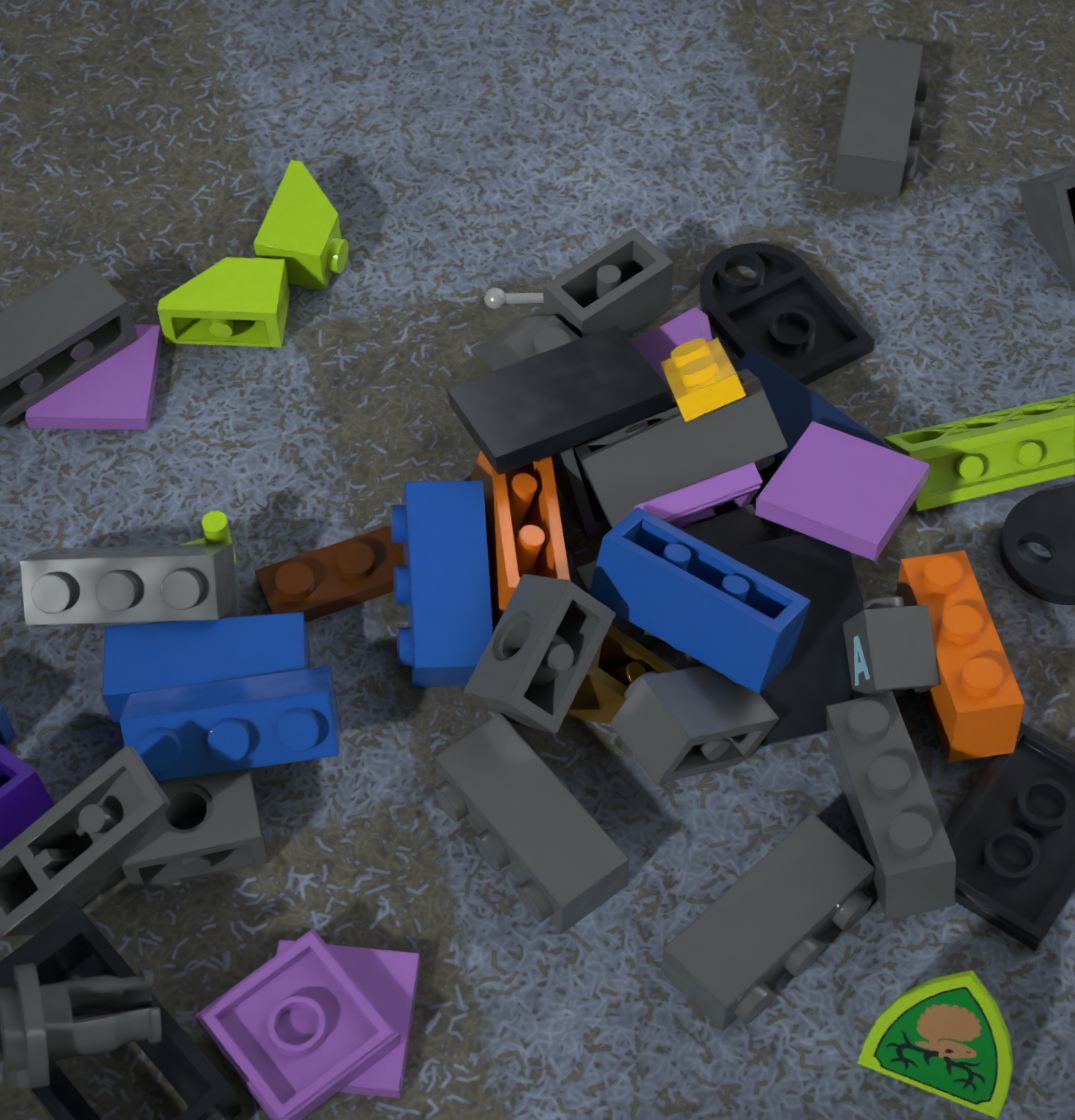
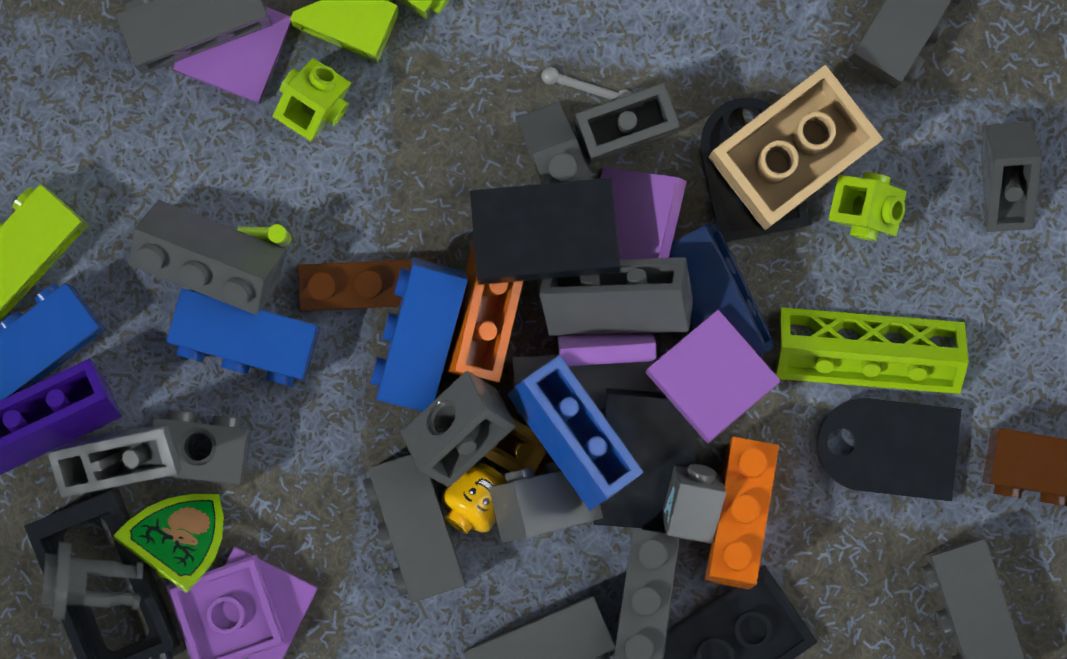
camera: 15 degrees right, 30 degrees up
(193, 940) = (177, 536): none -> shield
(195, 388) = (312, 99): none -> lime brick
(234, 723) = (243, 399): blue brick -> none
(595, 762) = (470, 499): none -> yellow head
(701, 377) = (646, 265): yellow plate -> none
(817, 250) = (795, 147): none -> tan brick
(932, 290) = (868, 205): none -> lime brick

